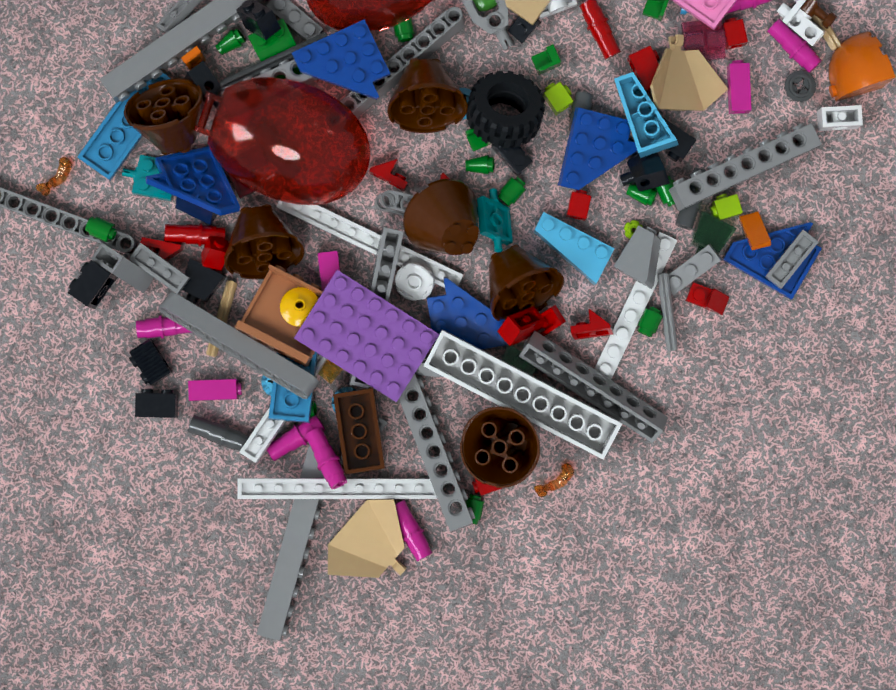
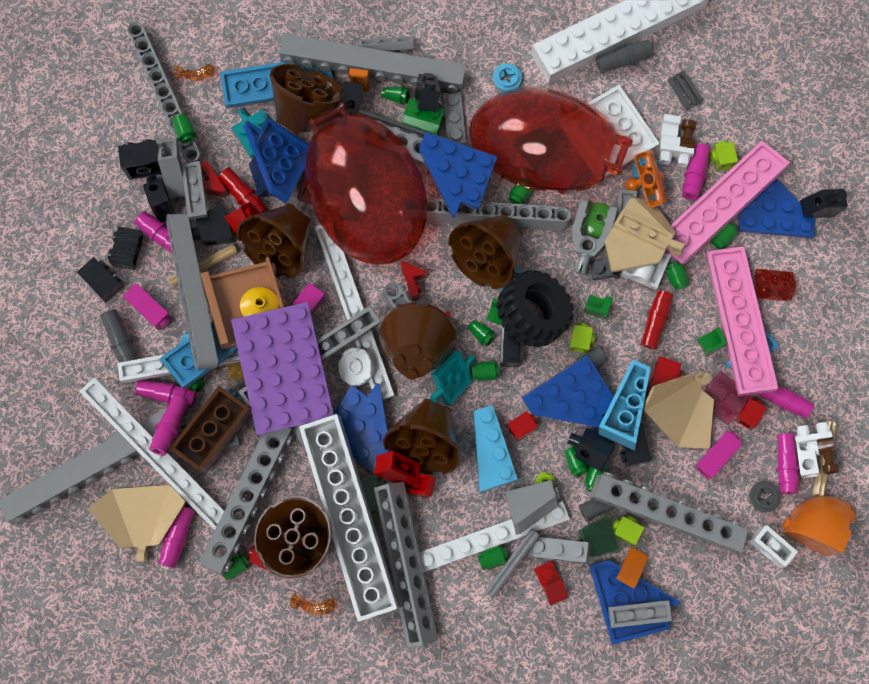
camera: 45 degrees right, 10 degrees down
(136, 301) = (157, 195): none -> black torso
(596, 328) = (449, 523): red slope -> none

